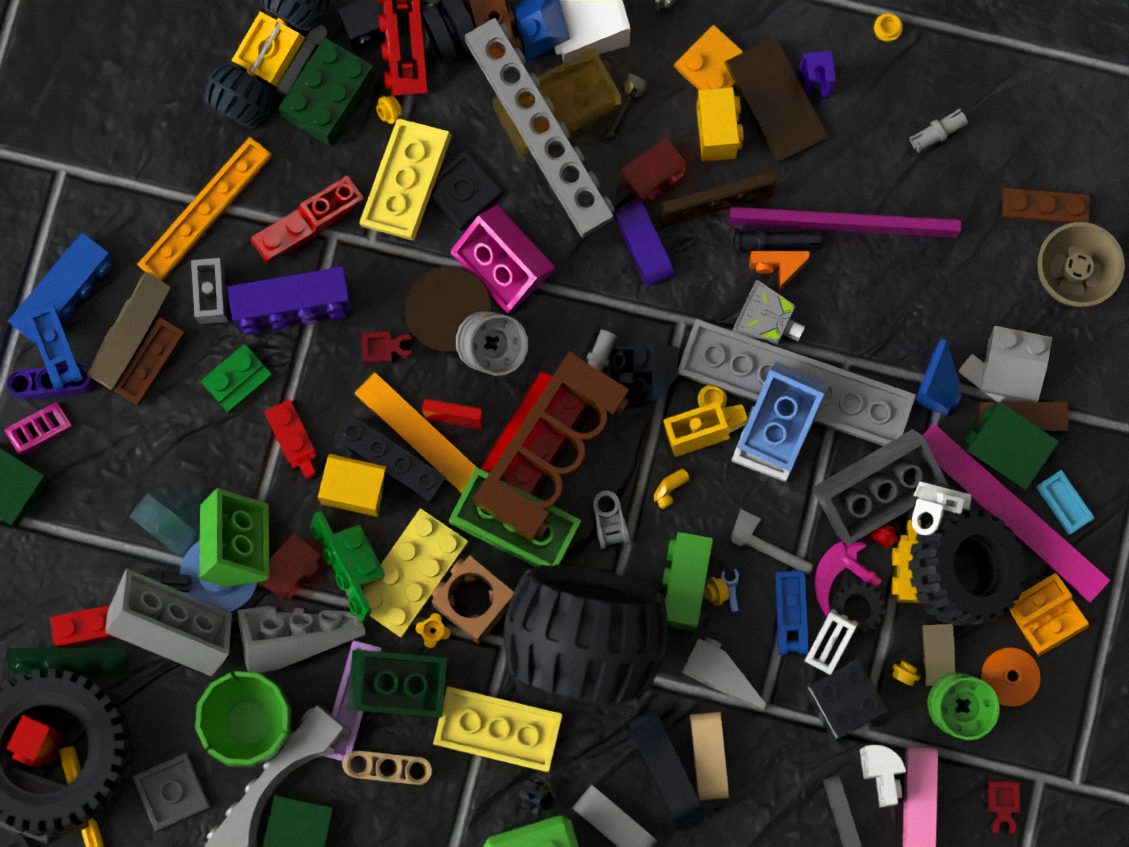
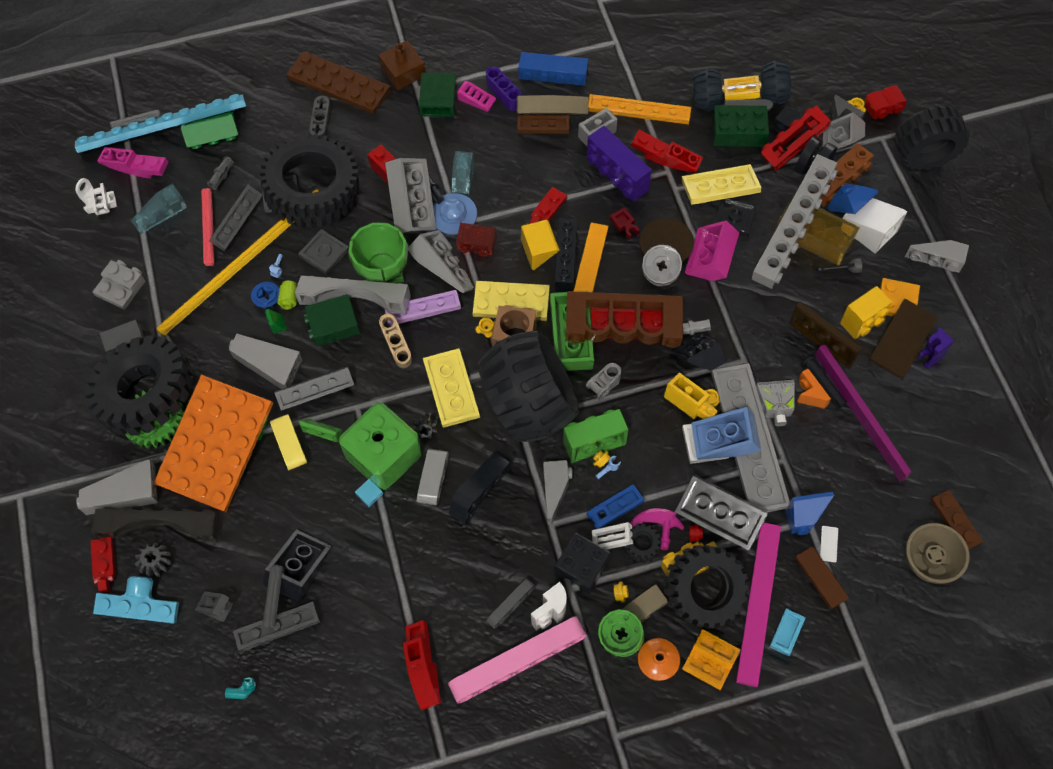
camera: 60 degrees right, 15 degrees down
(35, 742) = (311, 168): red brick -> none
(54, 346) = (521, 74): blue plate -> none
(76, 660) = (366, 170): clear green plate -> none
(233, 539) = (474, 203): bright green slope -> none
(236, 378) = (561, 167): green plate -> none
(351, 560) = (500, 266): green bracket -> none
(388, 109) = (752, 158): yellow plate -> none
(397, 683) = (444, 318): dark green brick -> none
(453, 414) = (610, 269): red tile -> none
(644, 243) = (771, 315): dark purple beam -> none
(654, 171) = (816, 297): clear red brick -> none
(666, 486) = (644, 400): yellow arm -> none
(709, 756) = (503, 506): tan beam -> none
(742, 535) = (644, 457): light grey piece -> none
(888, 27) = (991, 375): yellow plate -> none
(935, 501) = (731, 536): white piece -> none
(938, 130) = (954, 434): light grey pin -> none
(1004, 799) = (579, 694): dark red plate -> none
(1010, 444) = (799, 575): dark green brick -> none
(1015, 364) = (850, 552): light grey slope -> none

